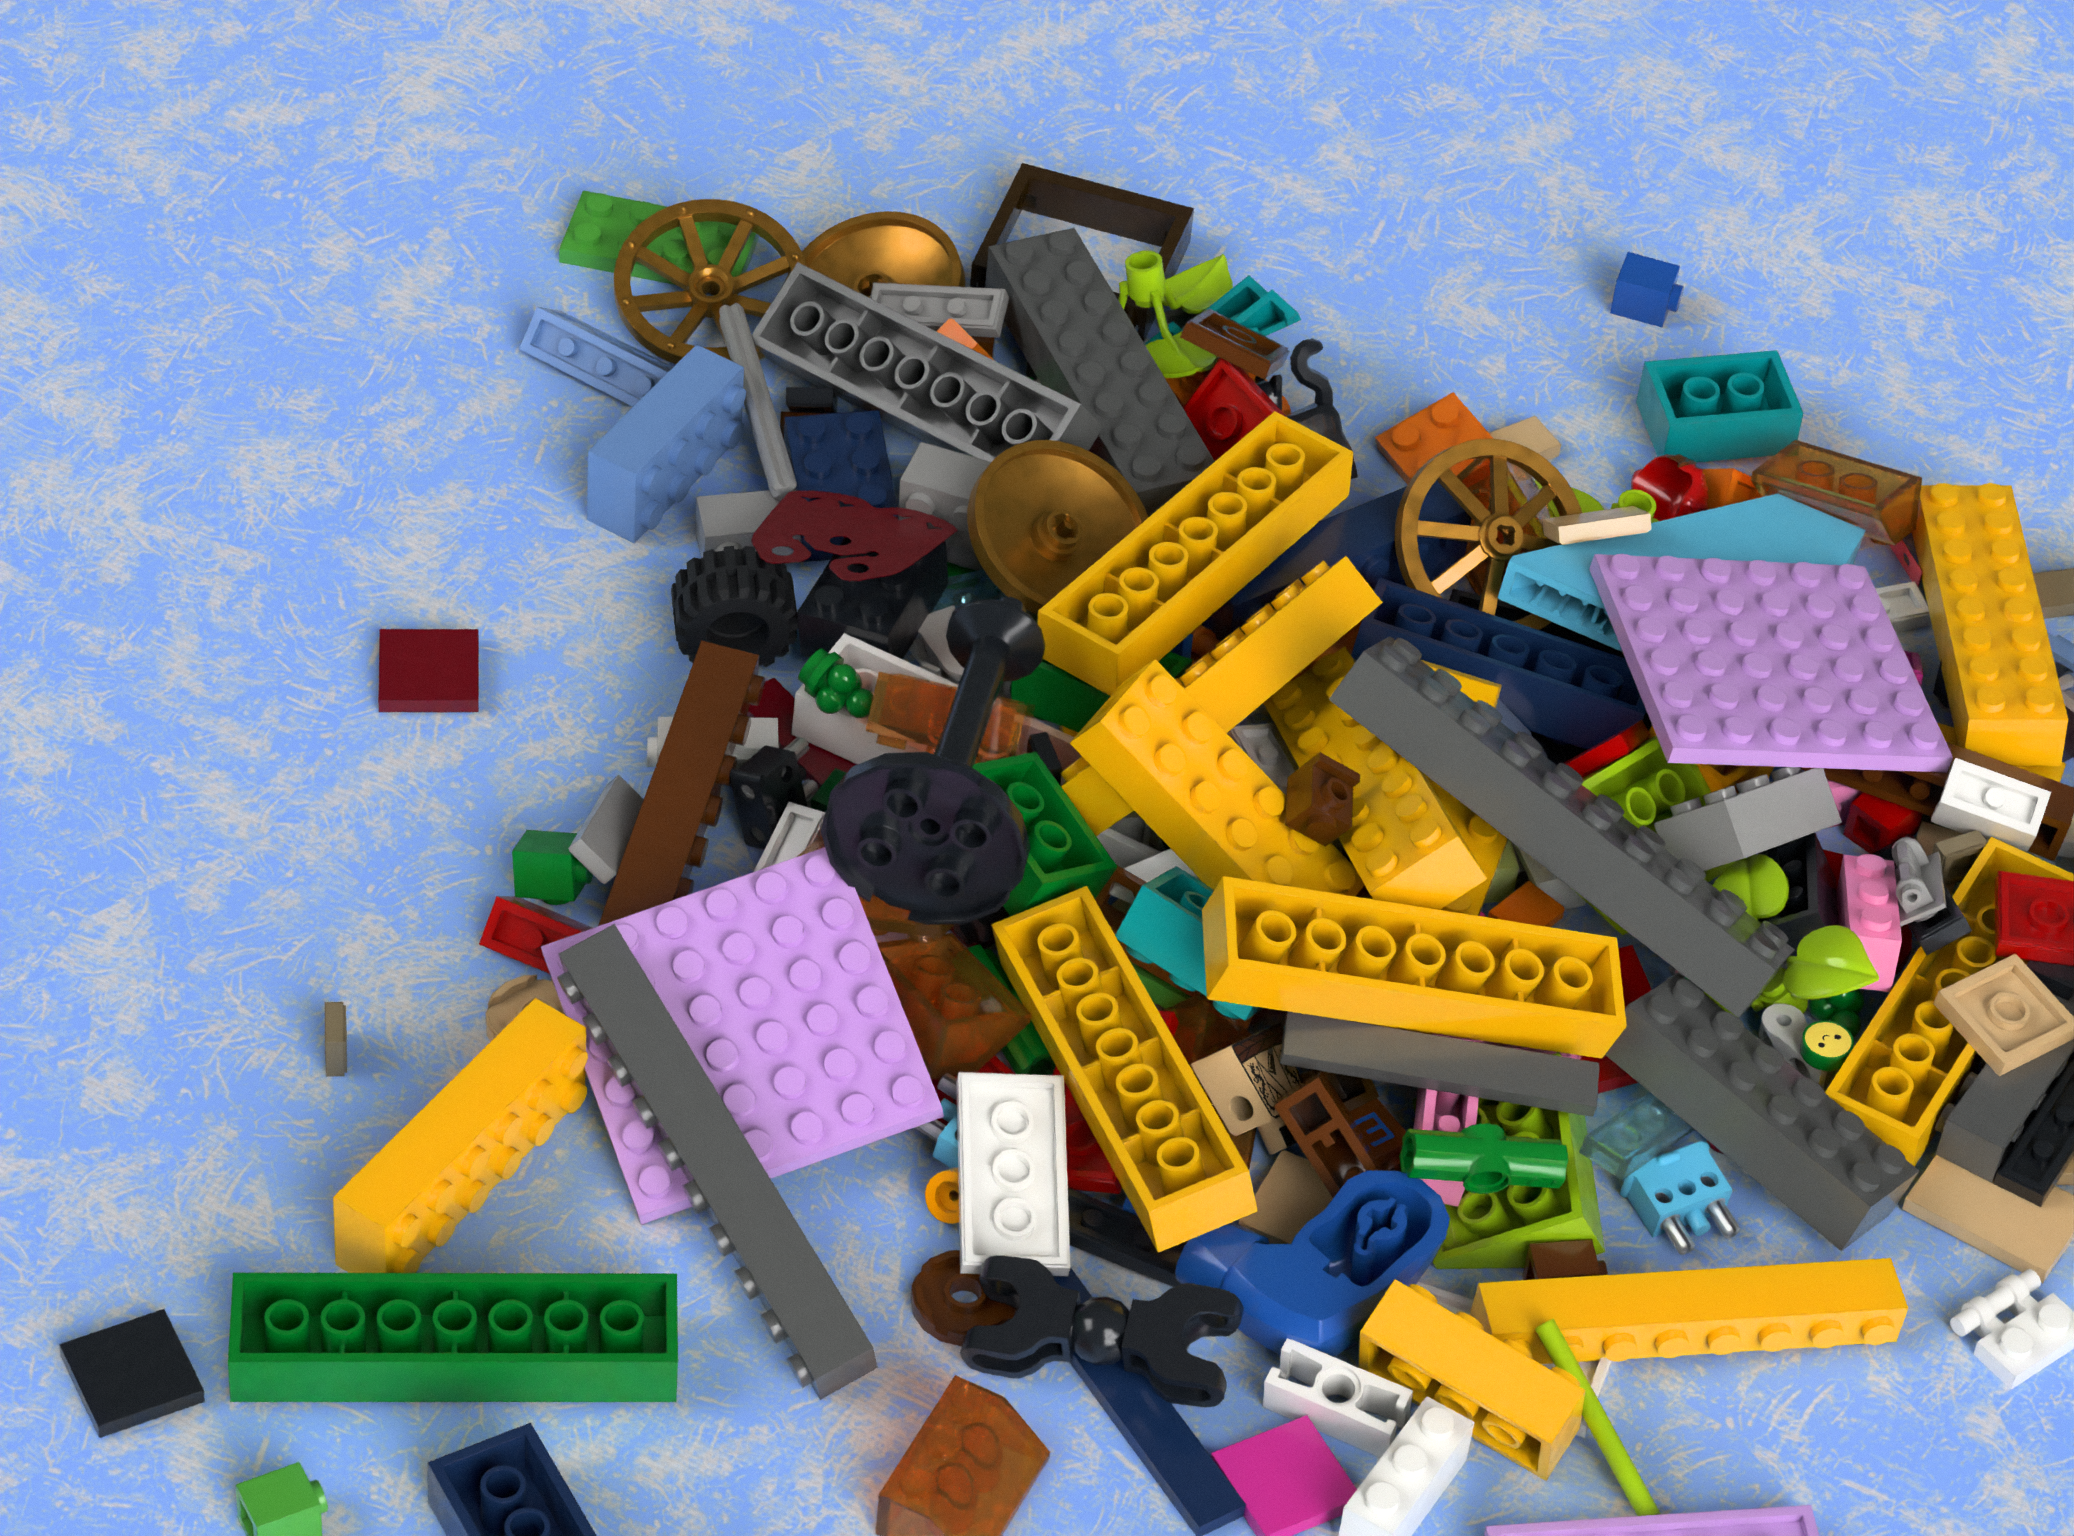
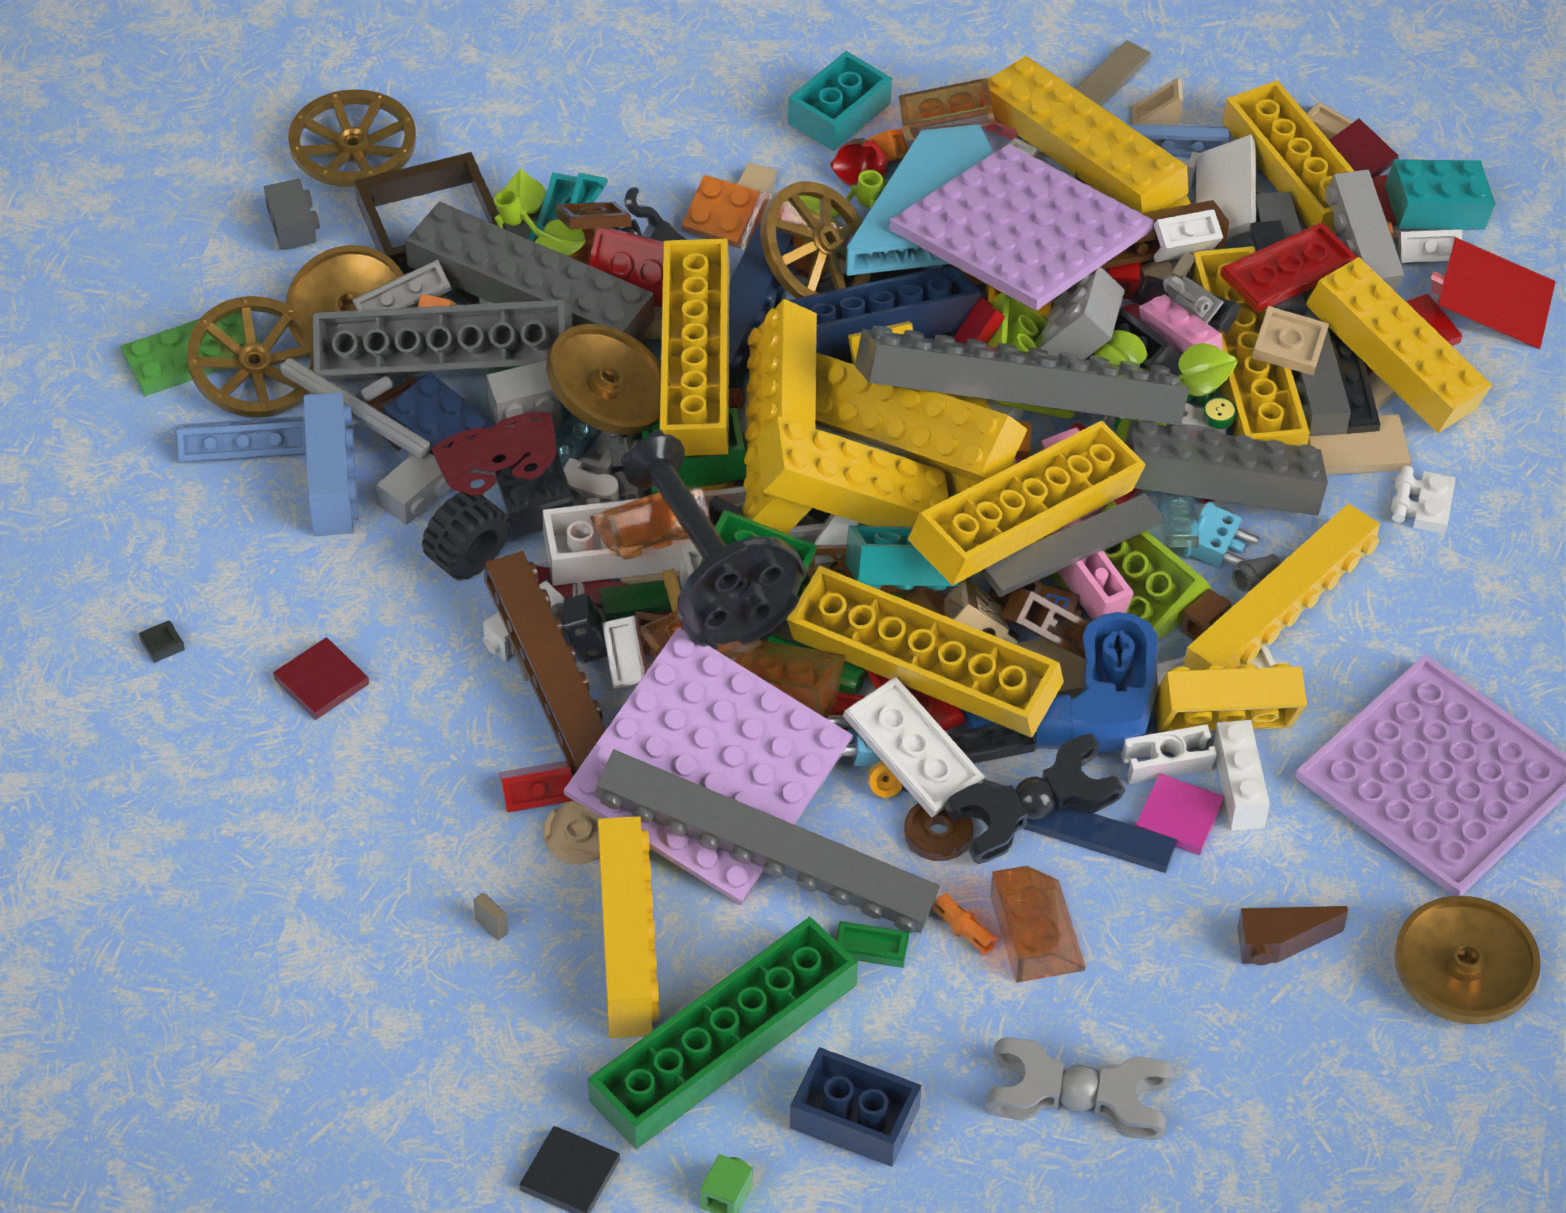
camera: 35 degrees left, 5 degrees up
(300, 524) = (161, 641): none -> pearl dark grey tile
(547, 869) = (509, 742): green brick -> none
(607, 830) = (522, 701): light grey tile -> none
(744, 1369) = (873, 943): none -> green tile
(835, 684) = (576, 541): green piece -> none
(877, 1421) = (964, 924): none -> orange pin
(916, 159) = (291, 213): none -> dark grey brick
(1074, 125) = (351, 142): none -> pearl gold wheel
(1321, 799) = (905, 440): reddish brown brick -> none
(1483, 1158) = (1139, 580): green piece -> none
(1597, 525) = (867, 203): tan tile -> none
(1599, 1423) = (1311, 686): lime bar -> none
(1646, 290) = (737, 56): blue brick -> none
(1681, 1255) = (1252, 571): none -> dark grey cone

